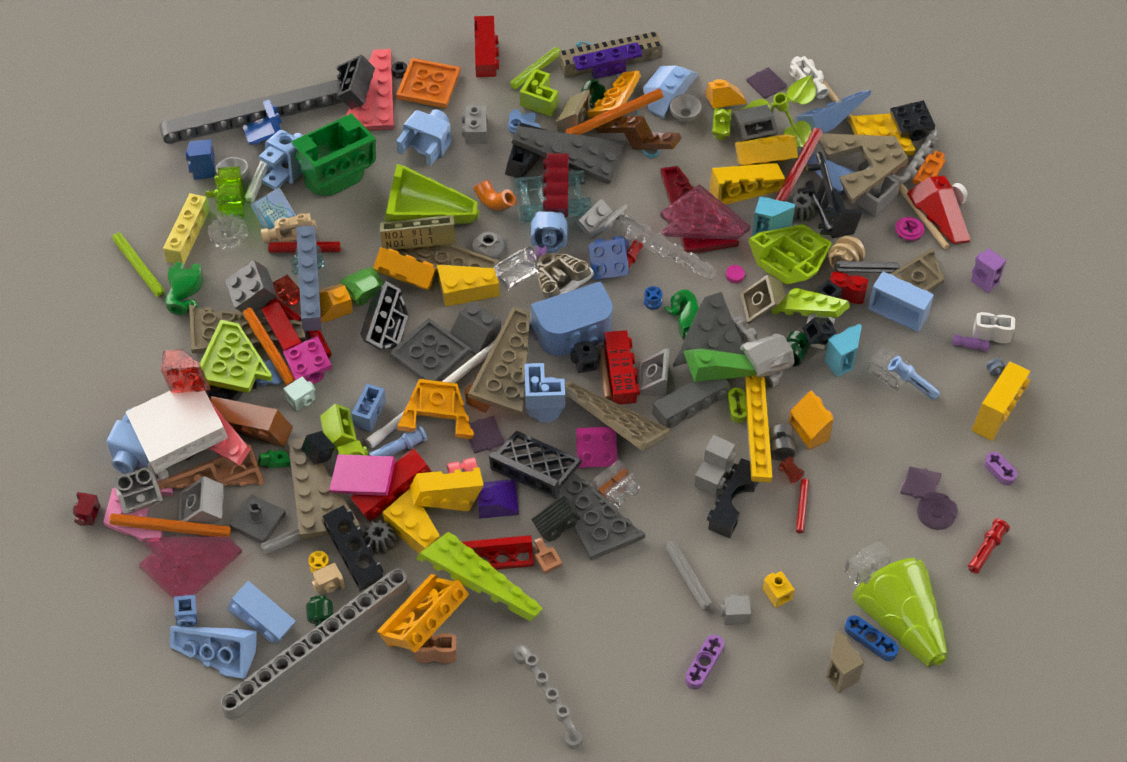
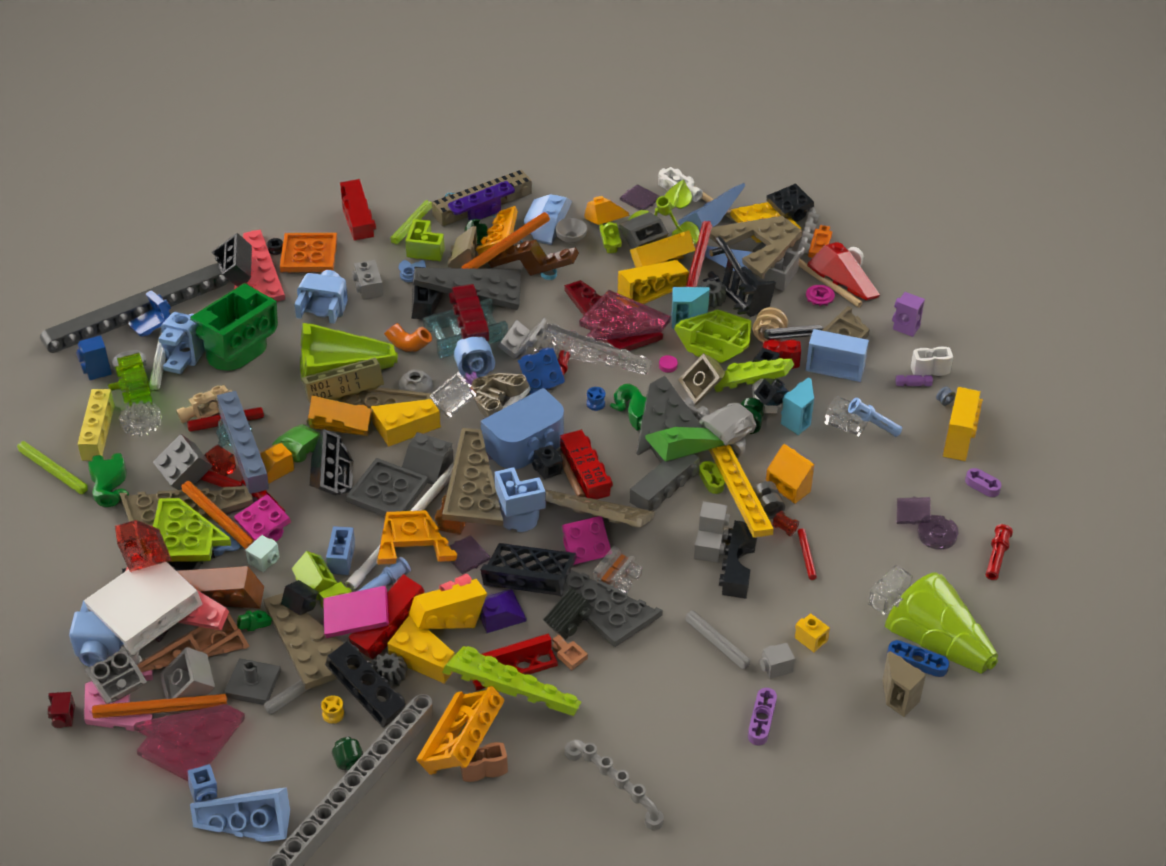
camera: 15 degrees left, 10 degrees down
(260, 613) = (283, 767): light blue wedge -> none
(272, 208) = (181, 388): piece -> none
(281, 326) = (224, 493): red tile -> none
(327, 579) = (347, 721): tan brick -> none
(654, 374) = (622, 464): light grey slope -> none

